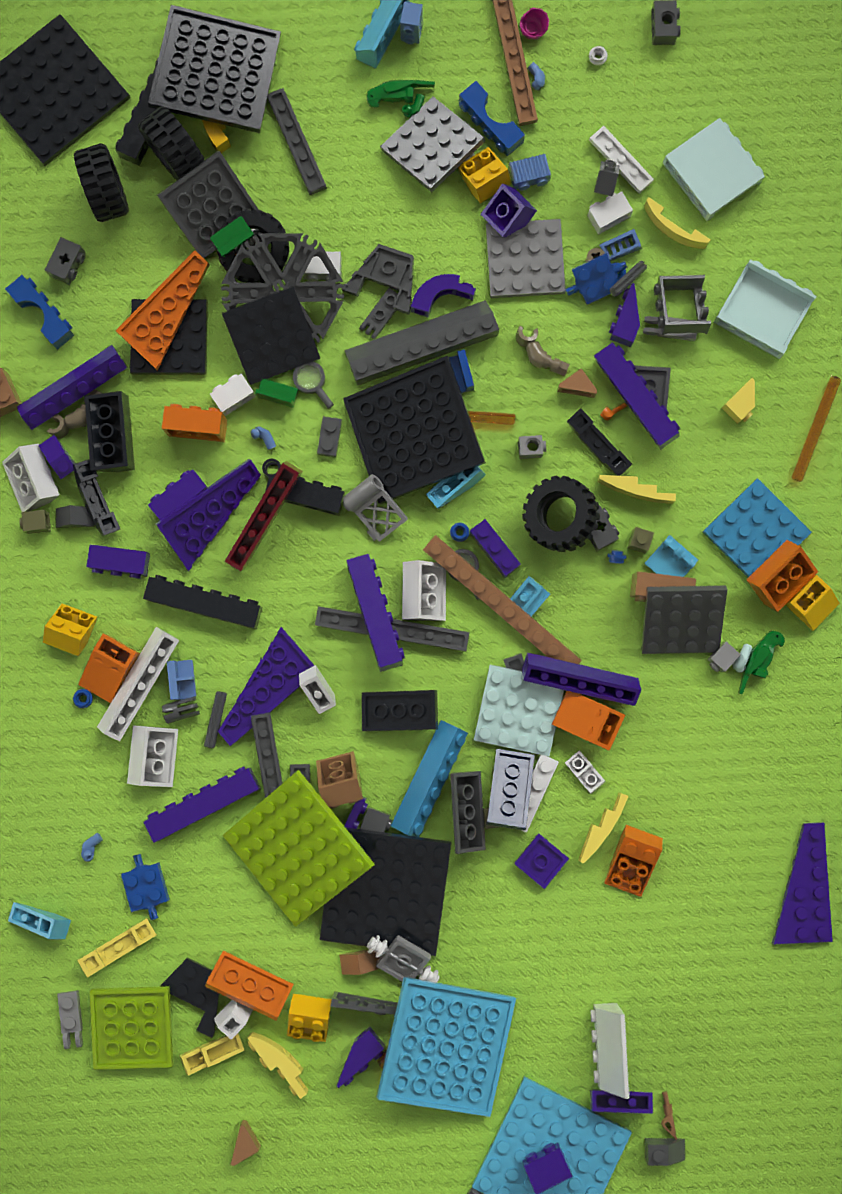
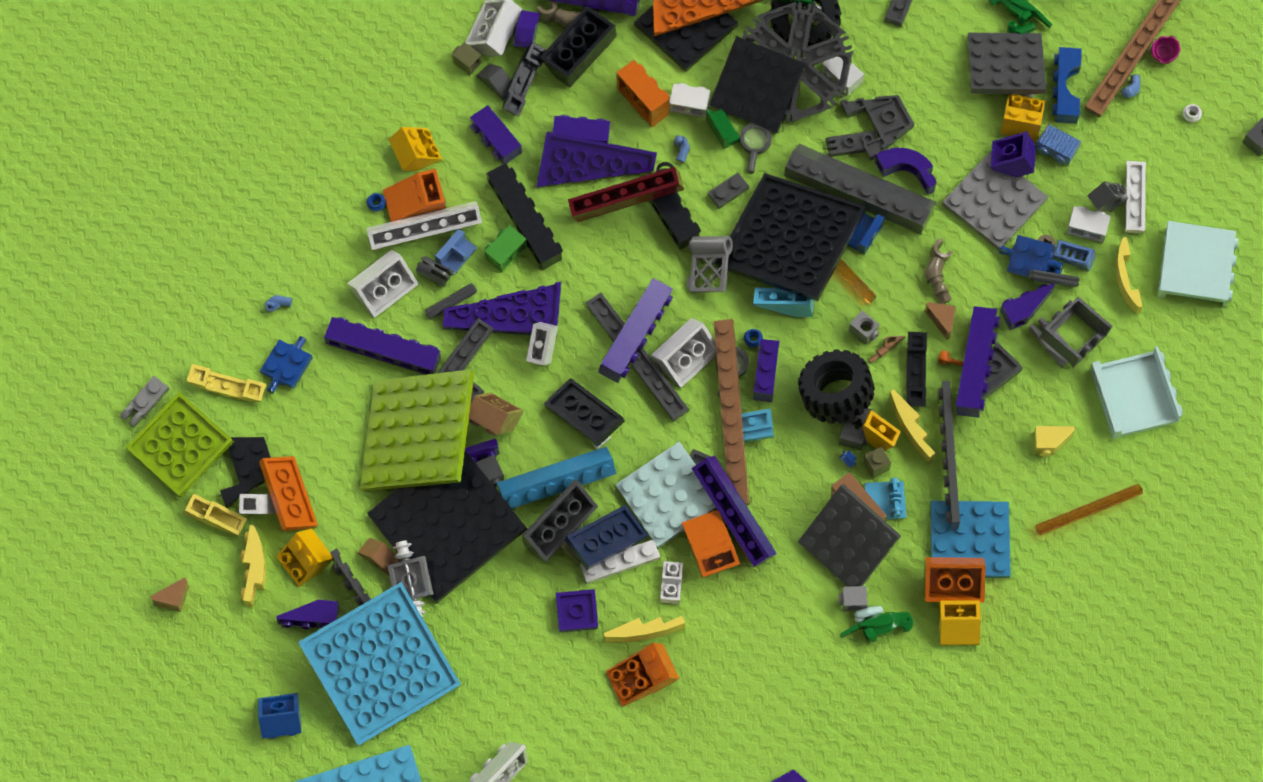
camera: 40 degrees right, 15 degrees down
(39, 921) = (193, 317): medium azure slope -> none
(214, 641) = (505, 248): none -> bright green brick
(411, 1152) = (279, 715): none -> blue slope
(559, 446) = (887, 346): none -> medium nougat hand
(624, 516) = (879, 431): none -> yellow slope
(691, 490) = (949, 461): none -> dark grey plate

